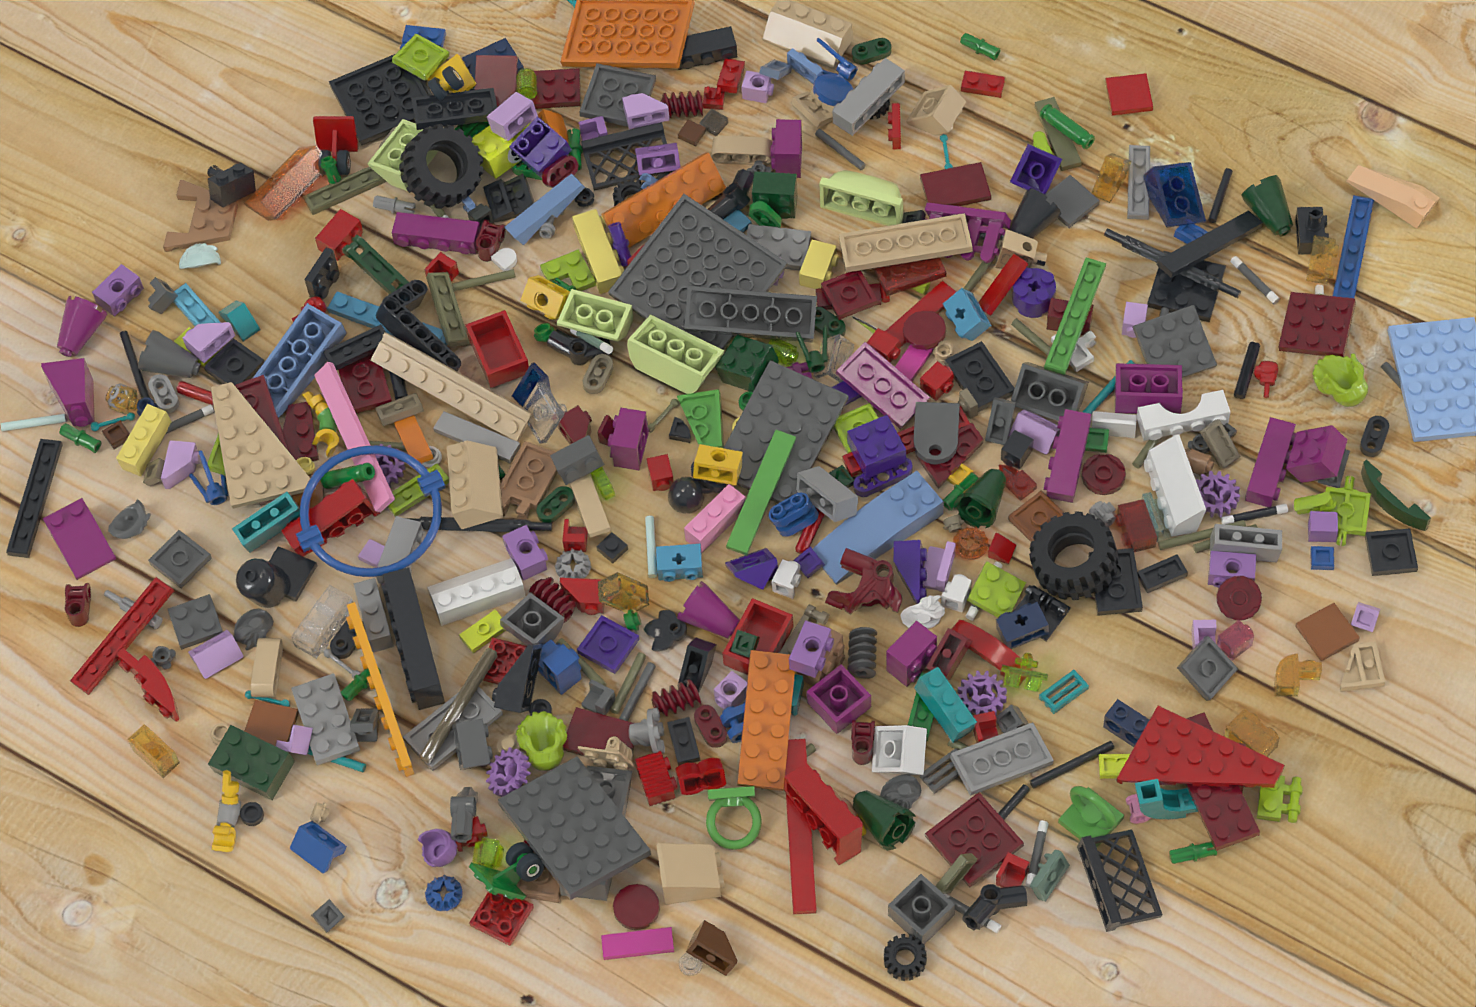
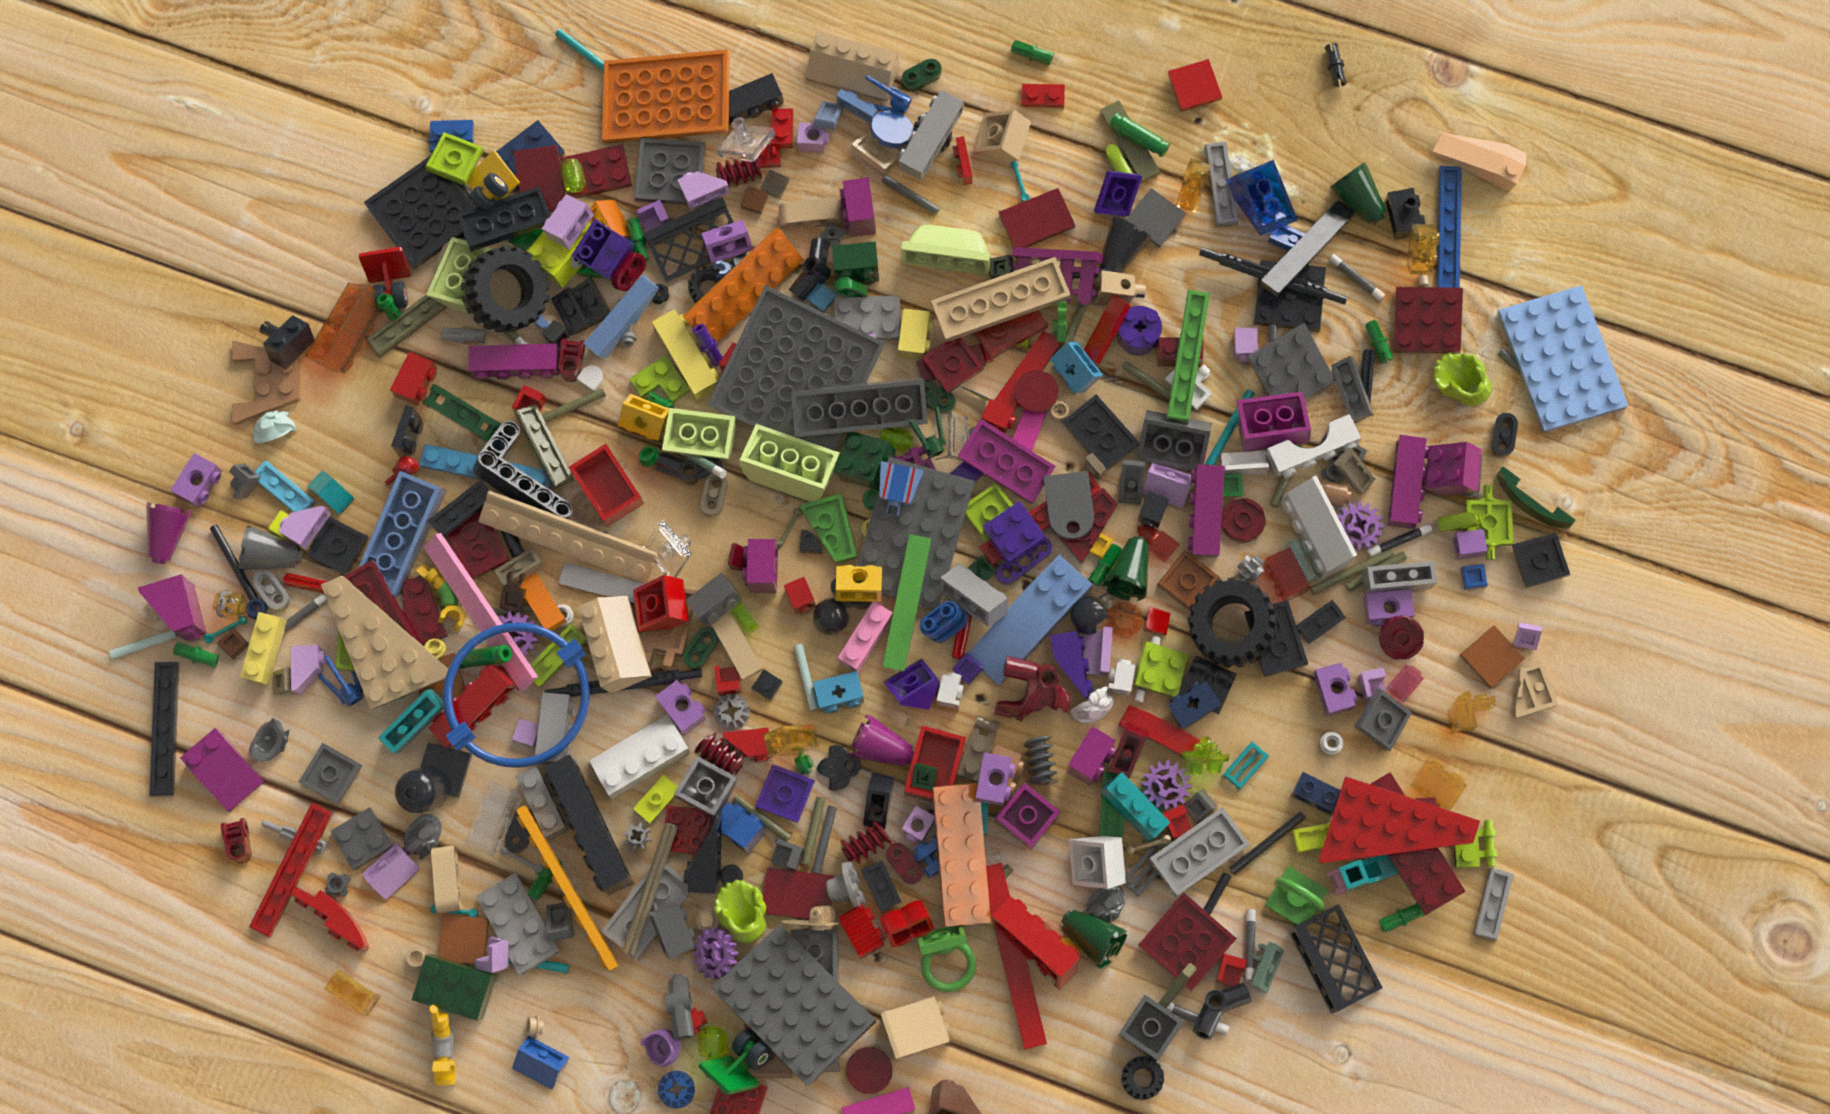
camera: 10 degrees left, 15 degrees up
(252, 814) = (466, 1038): black tile -> none
(388, 430) = (512, 595): none -> dark brown plate
(459, 665) = (644, 838): none -> light grey gear
(526, 456) = (660, 604): none -> red slope
(528, 382) = (647, 520): clear blue slope -> none
(575, 424) = (705, 559): dark red slope -> none
(693, 79) = (745, 141): none -> clear tile
(773, 383) = (898, 486): none -> torso
(862, 738) = (1058, 850): dark red piece -> none
(933, 530) = (1087, 615): none -> black hair
(937, 381) = (1060, 445): red brick -> none
(958, 276) = (1059, 325): none -> bright green plate
(970, 741) = (1166, 839): none -> tan hinge
(1152, 678) = (1331, 736): none -> white plate
(1164, 647) = (1333, 702): none -> medium lavender brick
(1220, 195) = (1306, 186): black bar -> none
(1231, 372) = (1352, 389): none -> dark grey plate
(1265, 337) = (1378, 341): none -> green axle
(1267, 96) = (1335, 65): none -> black pin
(1267, 374) = (1387, 383): red piece -> none
(1288, 856) = (1493, 904): none -> light grey tile

